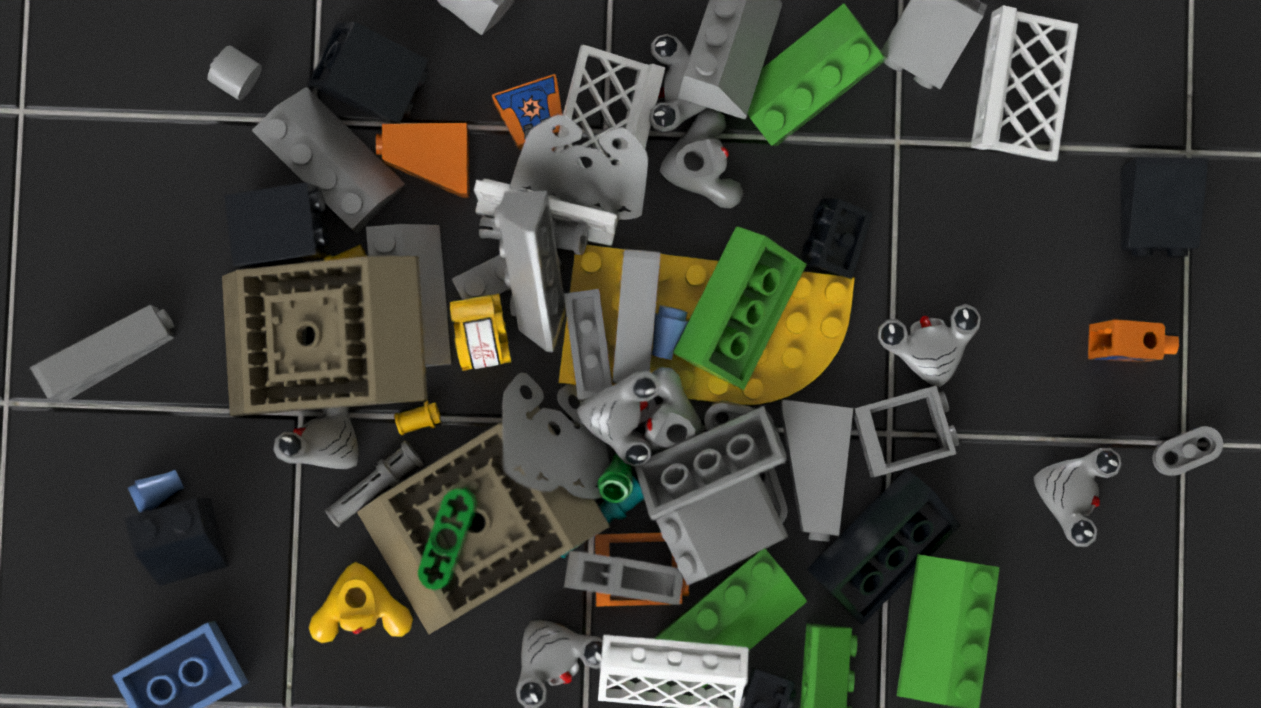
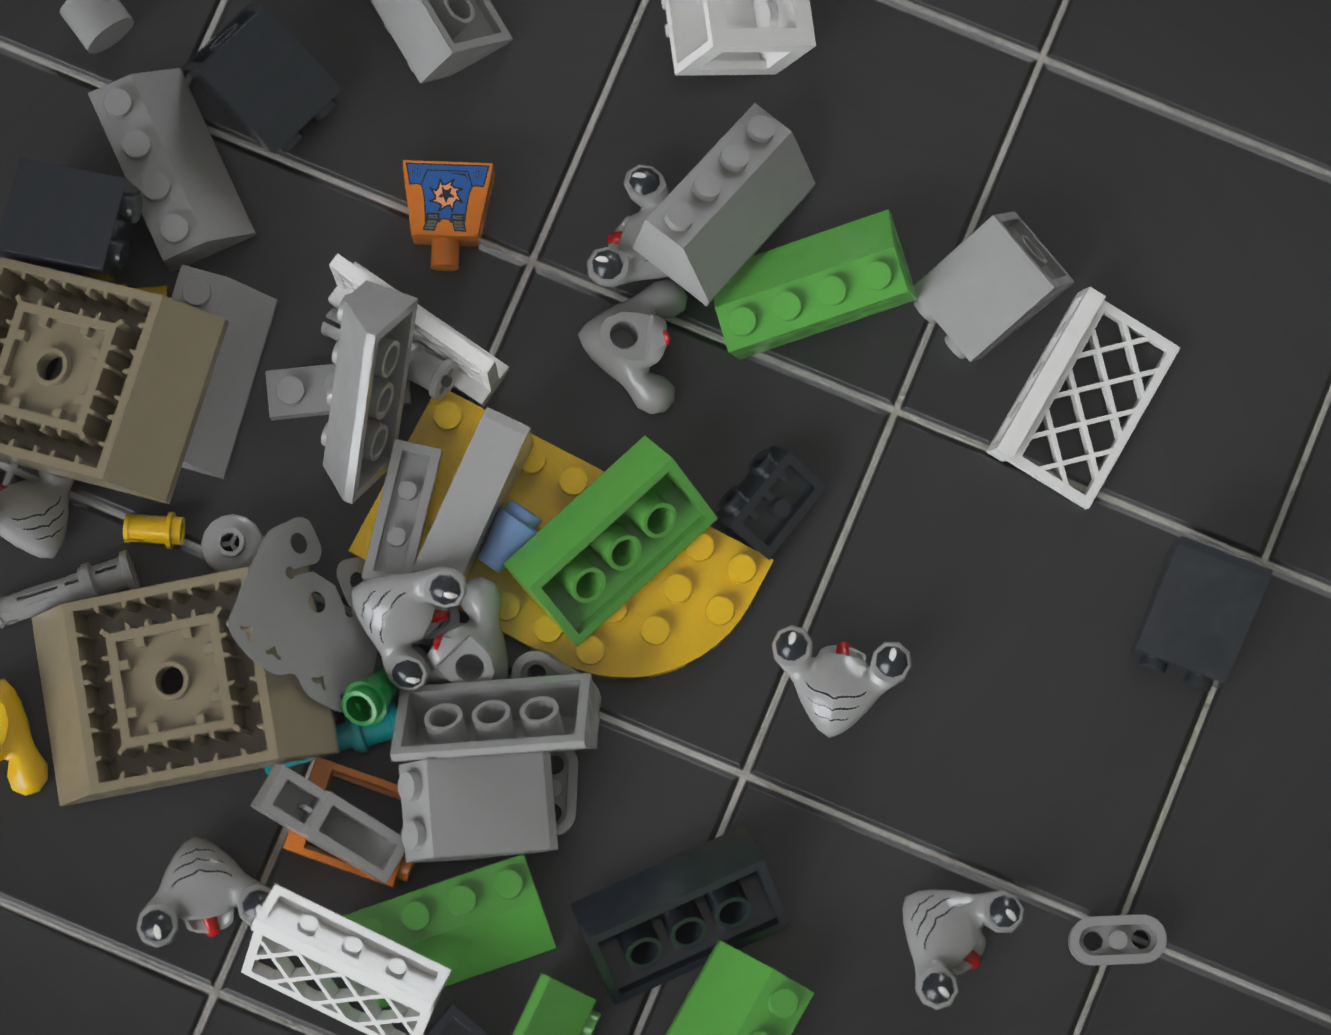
camera: 25 degrees right, 5 degrees down
(429, 152) = (299, 204): orange slope -> none
(447, 567) = (114, 723): green beam -> none
(480, 332) = (271, 448): yellow brick -> none
(488, 419) = (223, 534): none -> light grey head
(581, 186) = (482, 317): light grey piece -> none
(643, 98) = (564, 274): white fence -> none
(818, 457) = (638, 768): light grey slope -> none
(870, 444) = (817, 761): light grey window -> none
(1130, 341) = (1080, 765): orange torso -> none

